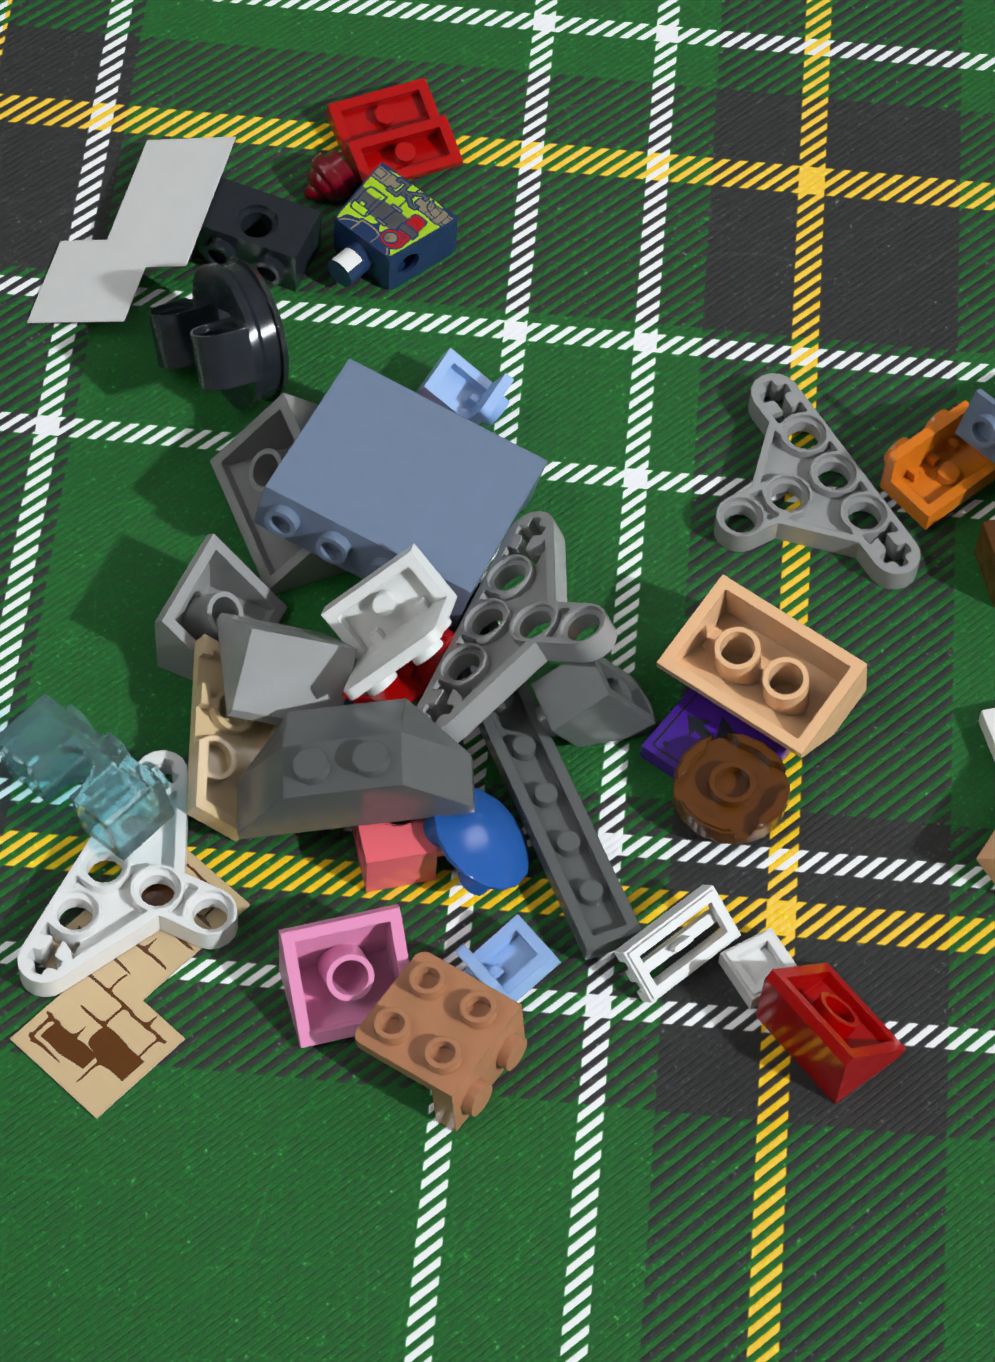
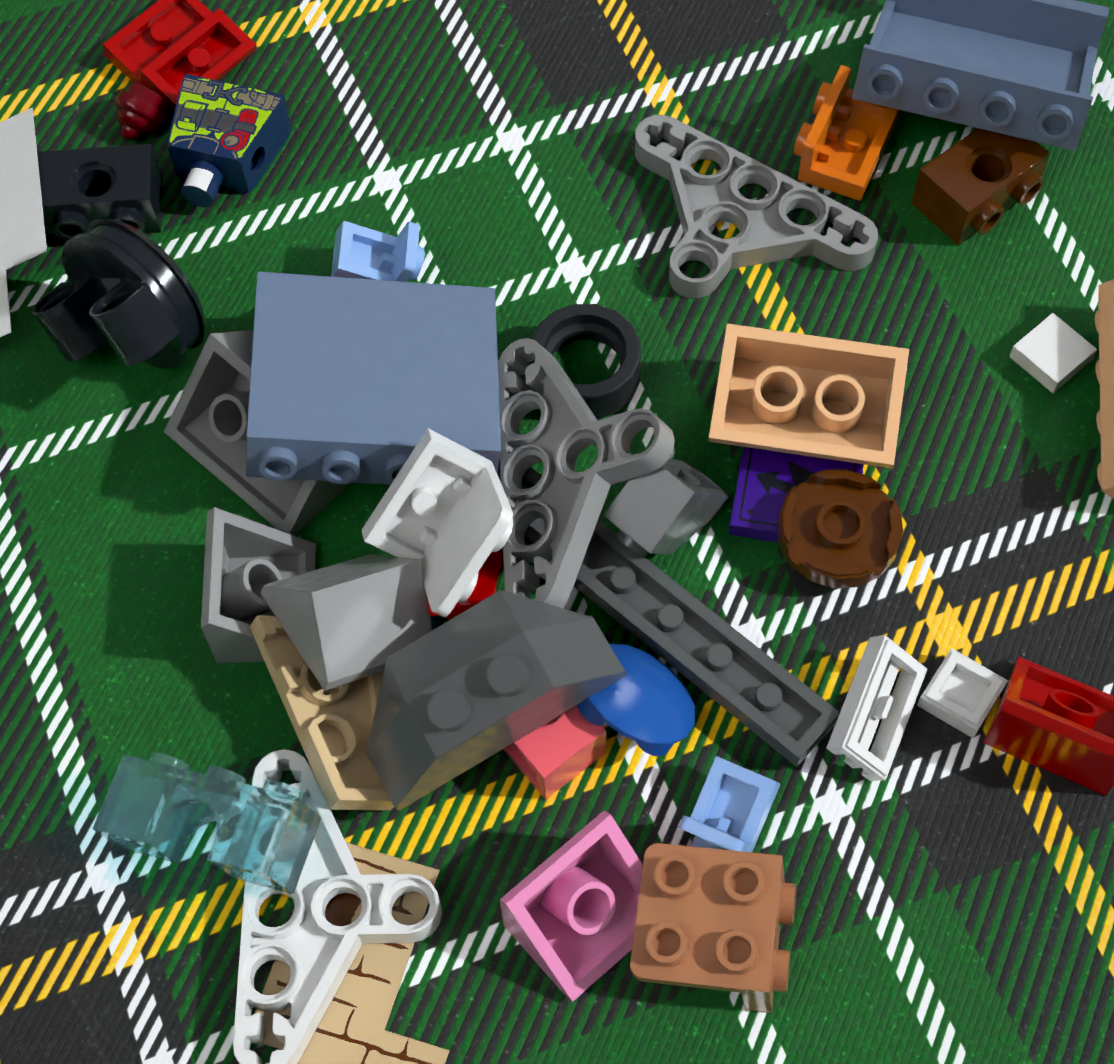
camera: 20 degrees left, 5 degrees up
(616, 527) = (606, 327): none -> black tyre

